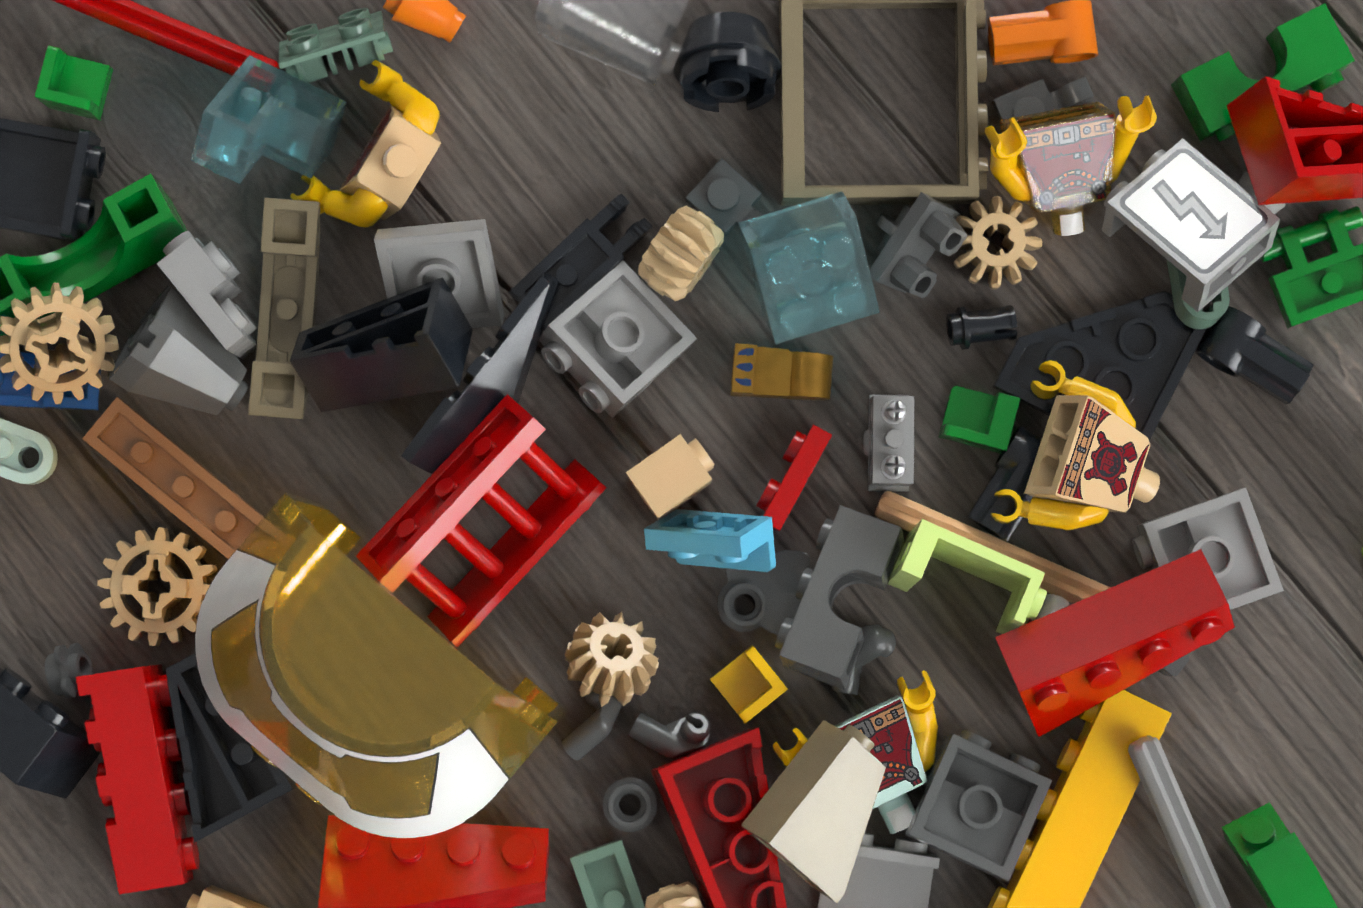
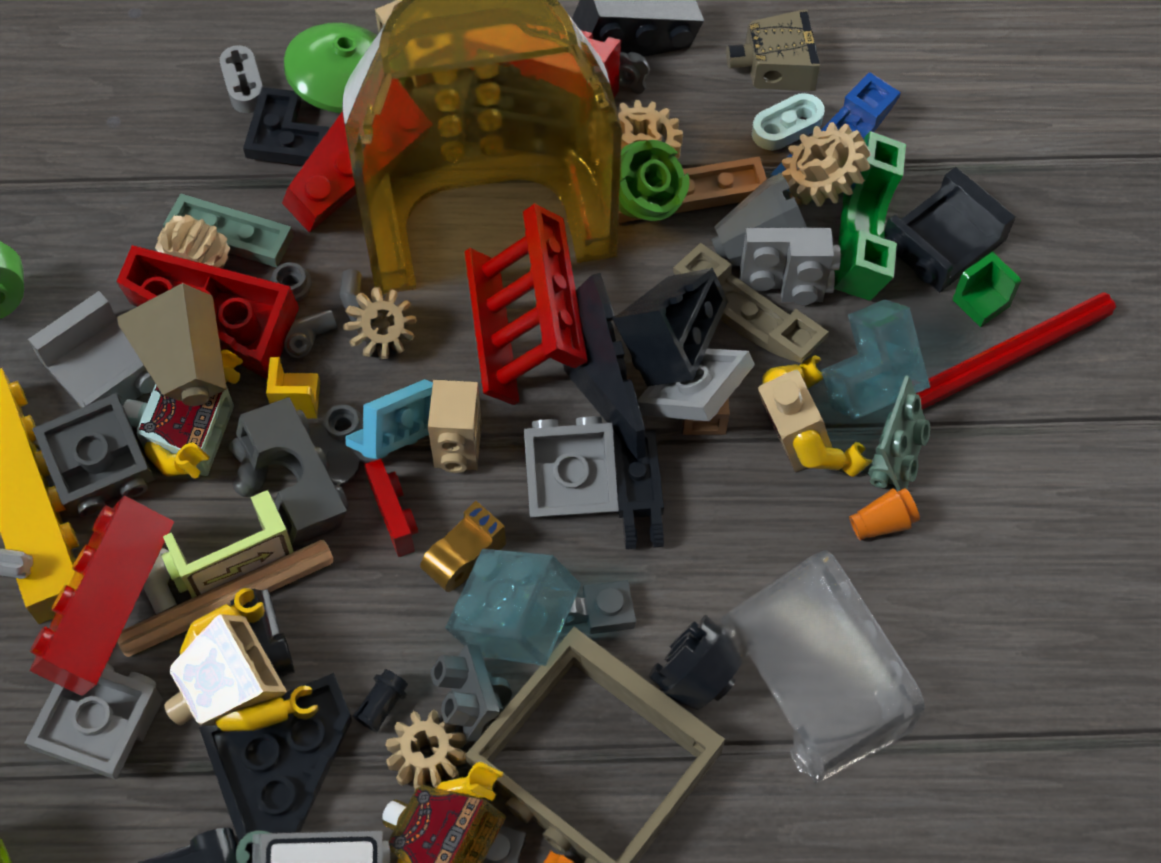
camera: 135 degrees right, 25 degrees down
(228, 501) = (651, 181): none -> bright green cone
(681, 253) = (592, 540): tan gear -> none
(890, 443) = (358, 579): light grey piece -> none
(979, 419) = (322, 646): green panel -> none

